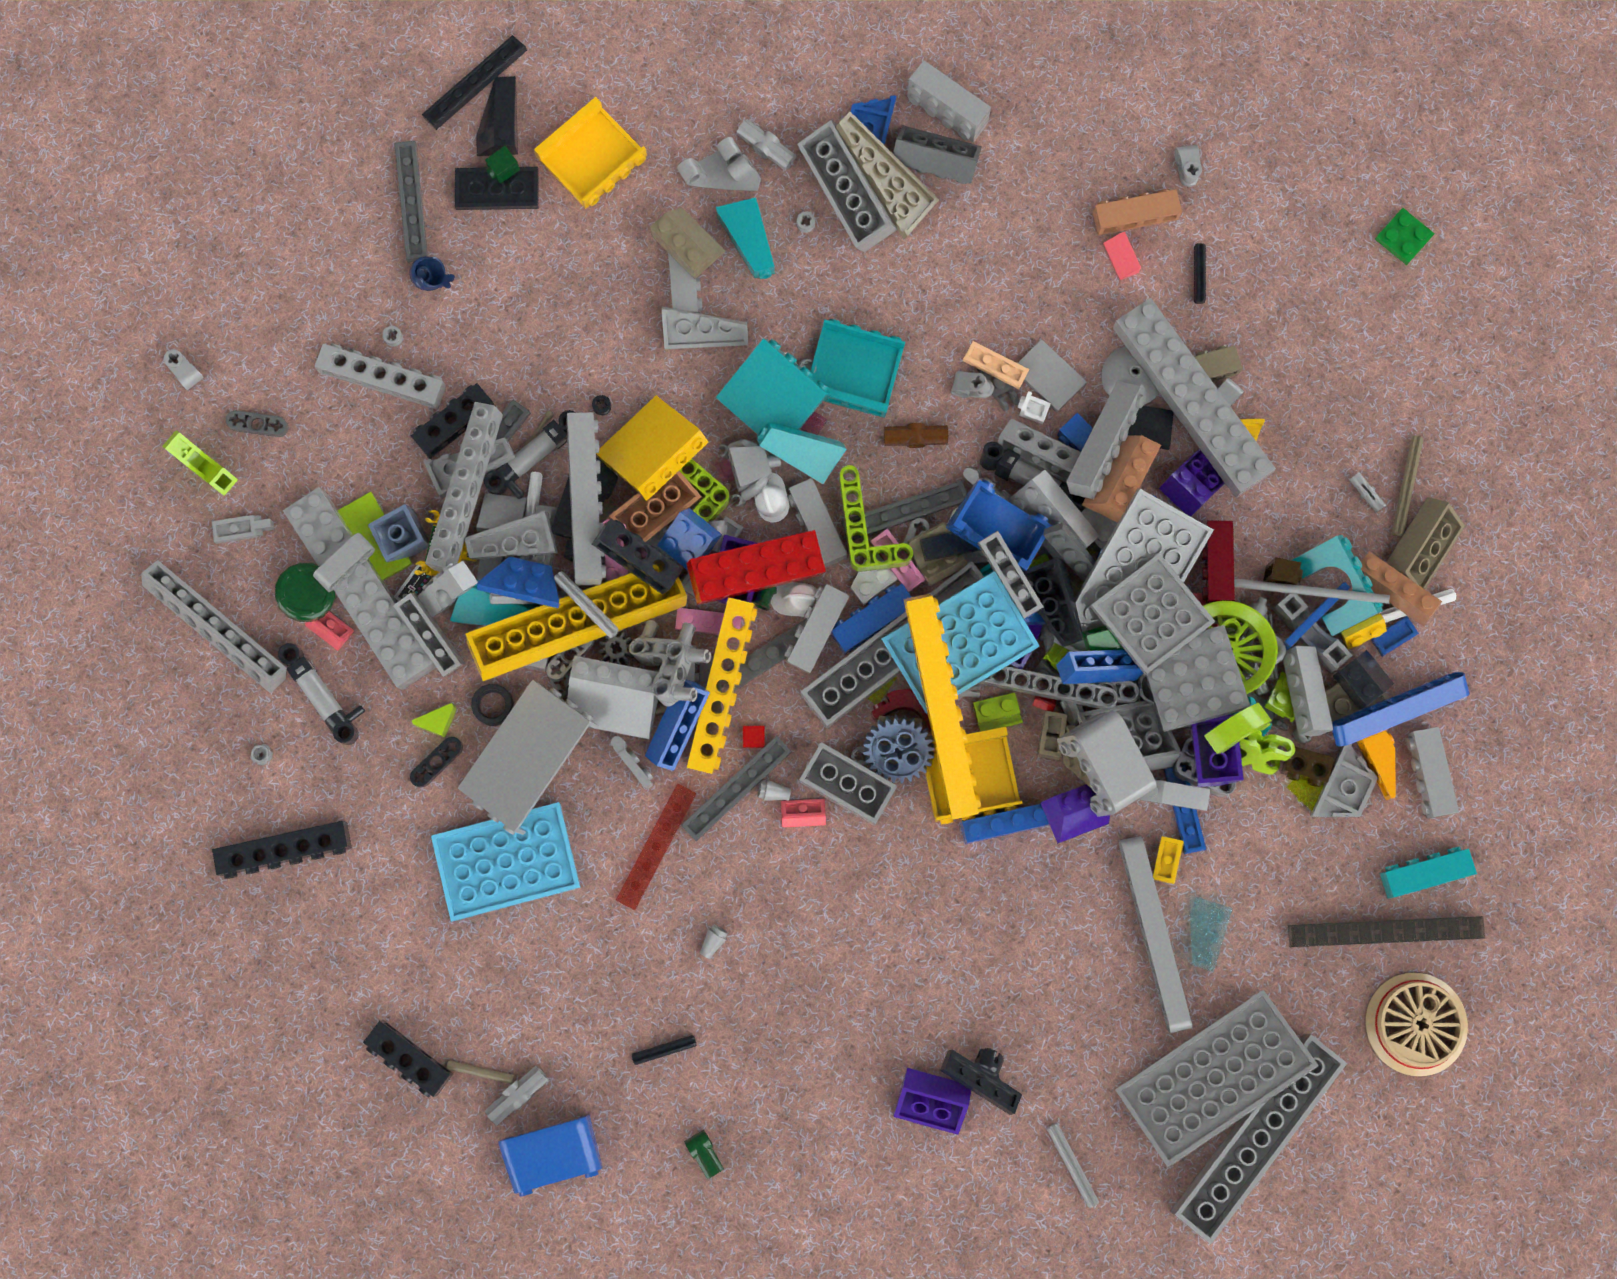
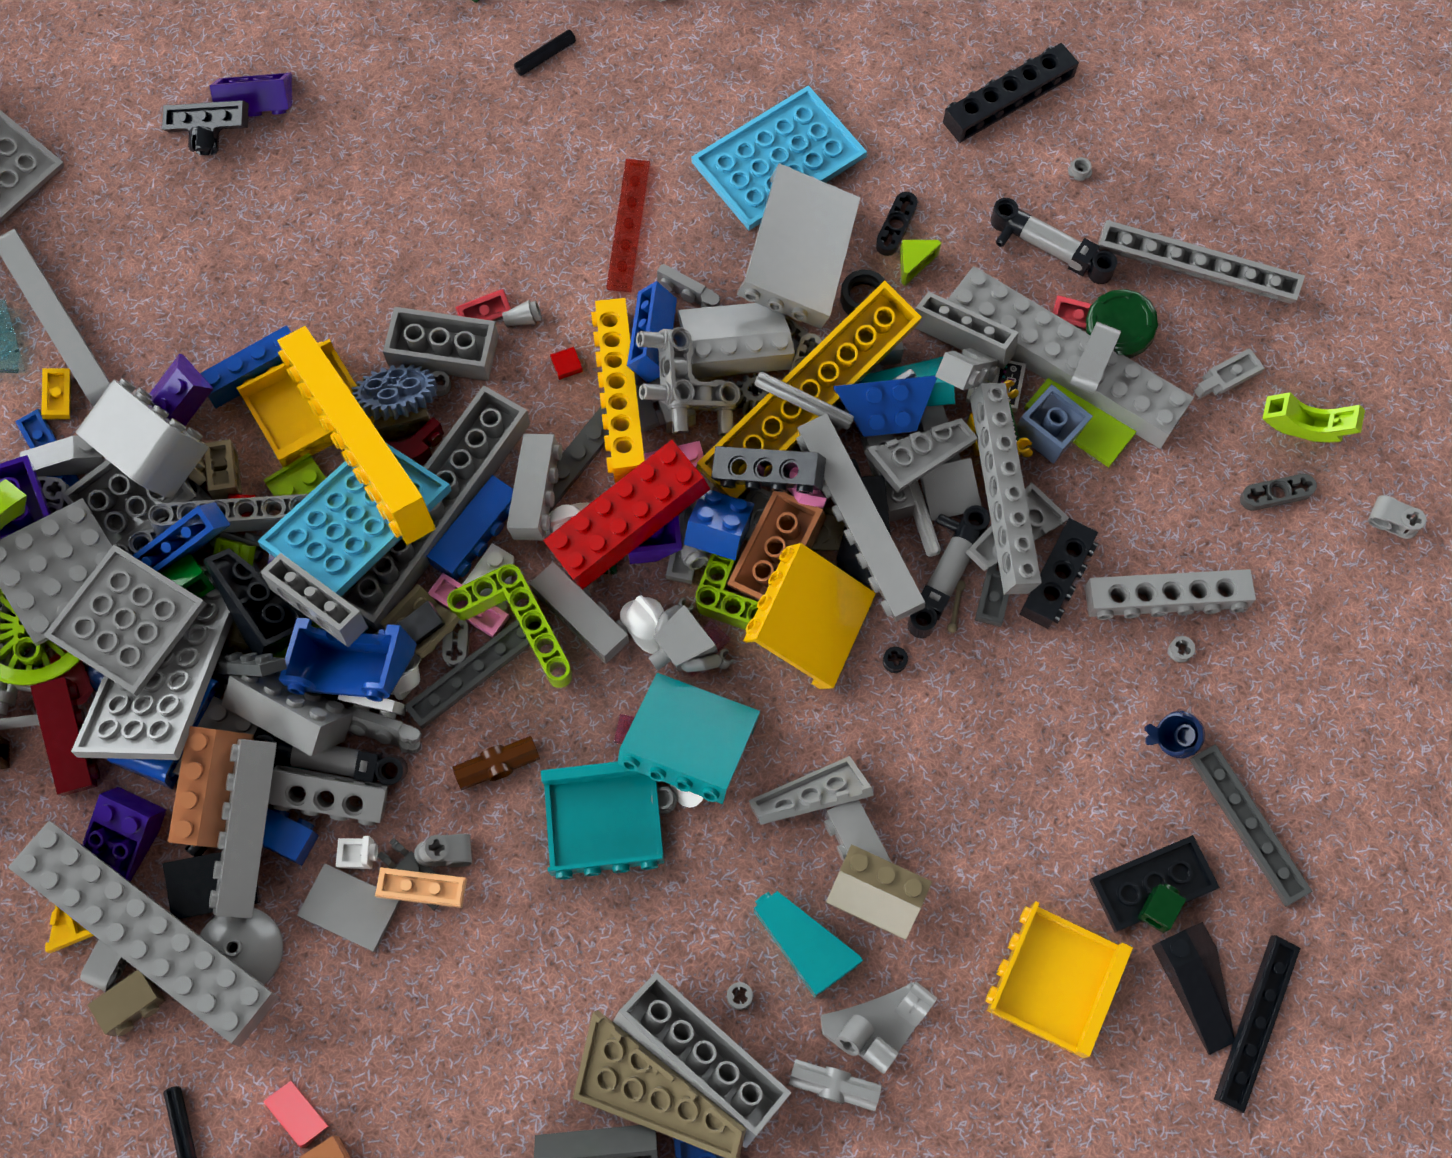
camera: 160 degrees right, 10 degrees down
(713, 941) = (531, 160): light grey cone -> none
(736, 788) = (563, 305): dark grey plate -> none
(803, 450) = (627, 680): slope -> none
(1072, 1165) = (92, 88): light grey axle -> none

